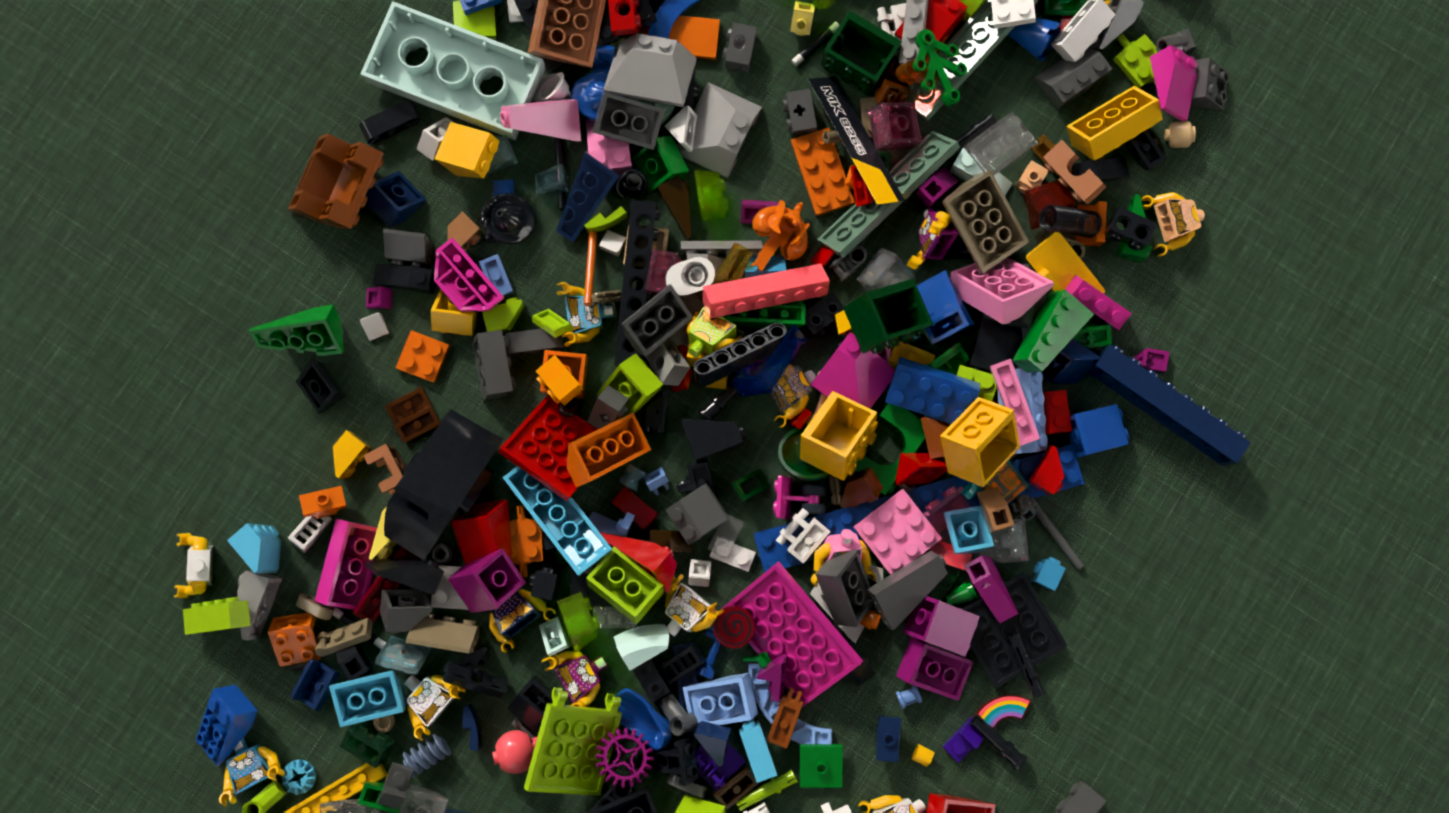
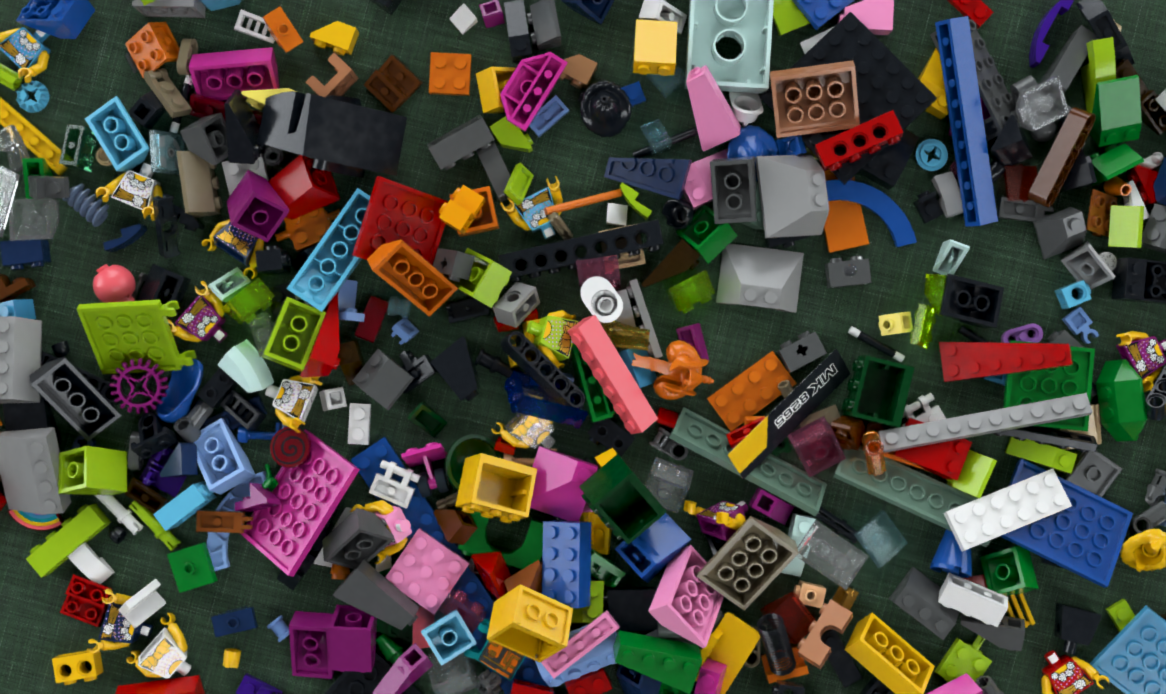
camera: 70 degrees right, 5 degrees up
(314, 684) = (118, 81): dark blue bracket -> none
(568, 412) = (439, 226): black bush -> none
(656, 321) = (547, 282): dark grey slope -> none
(683, 127) = (748, 244): white slope -> none
(726, 536) = (373, 412): clear slope -> none
(937, 65) = (887, 468): green plant -> none
(995, 510) = (473, 656): medium nougat slope -> none
(999, 97) = (880, 538): none -> clear light blue plate

